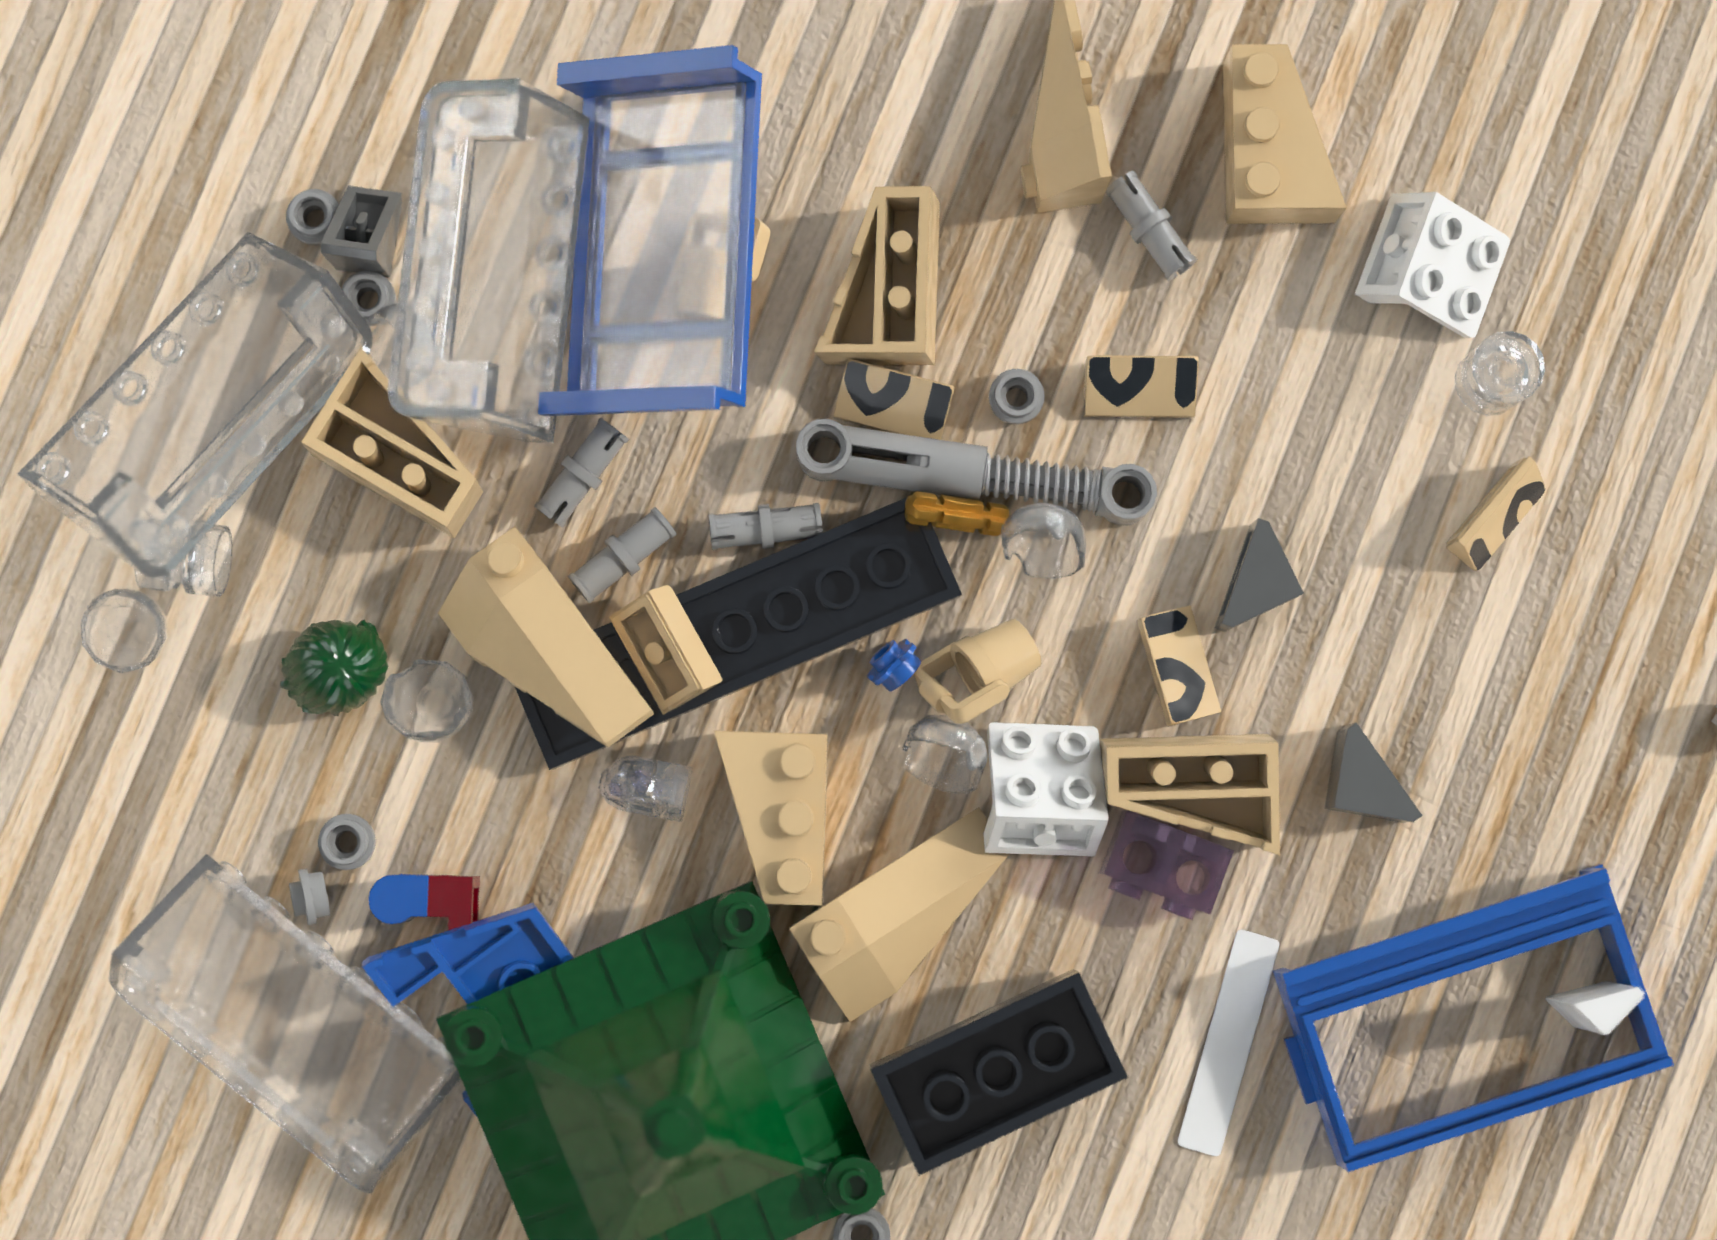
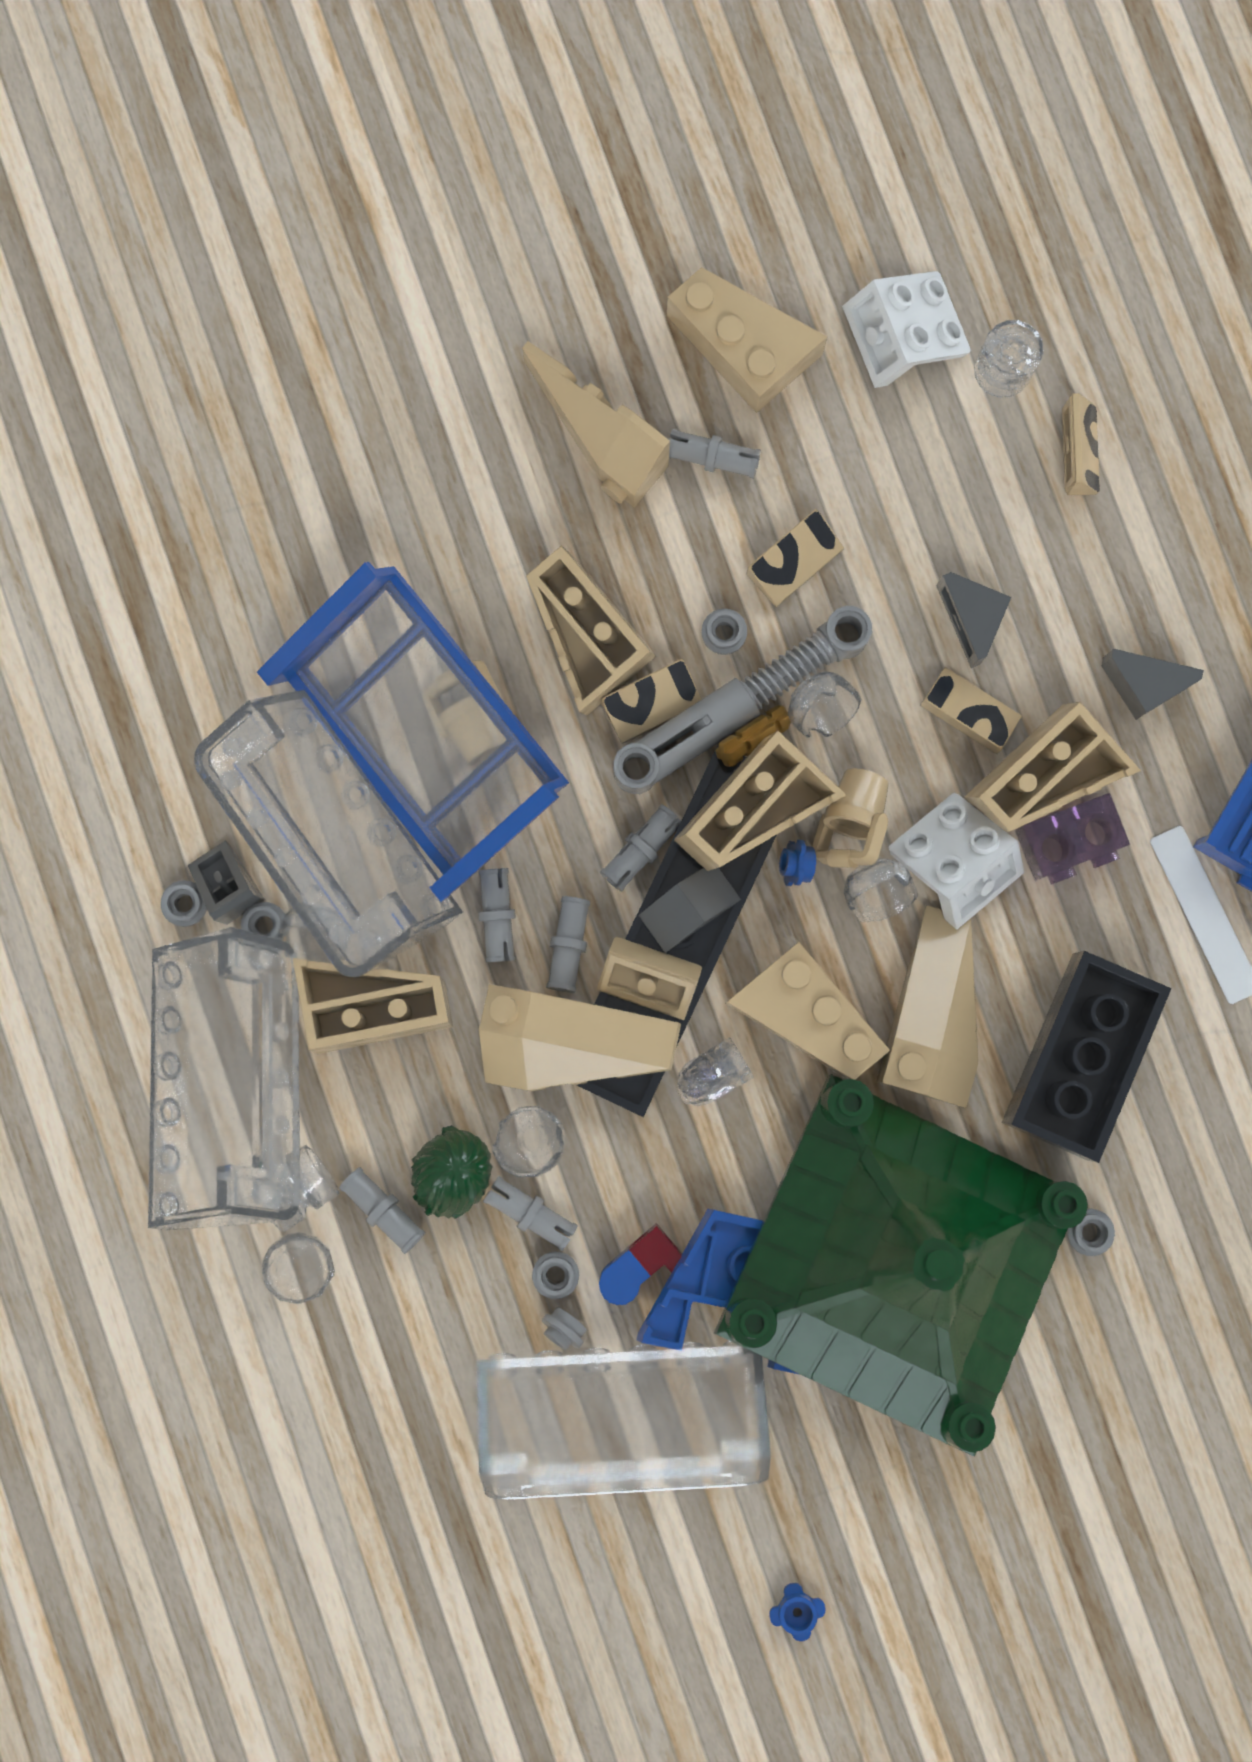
camera: 40 degrees left, 0 degrees up
(244, 646) = (382, 1210): none -> light grey pin
(373, 766) = (530, 1213): none -> light grey pin
(758, 615) = (688, 907): none -> dark grey slope
(901, 575) = (759, 800): none -> tan wedge

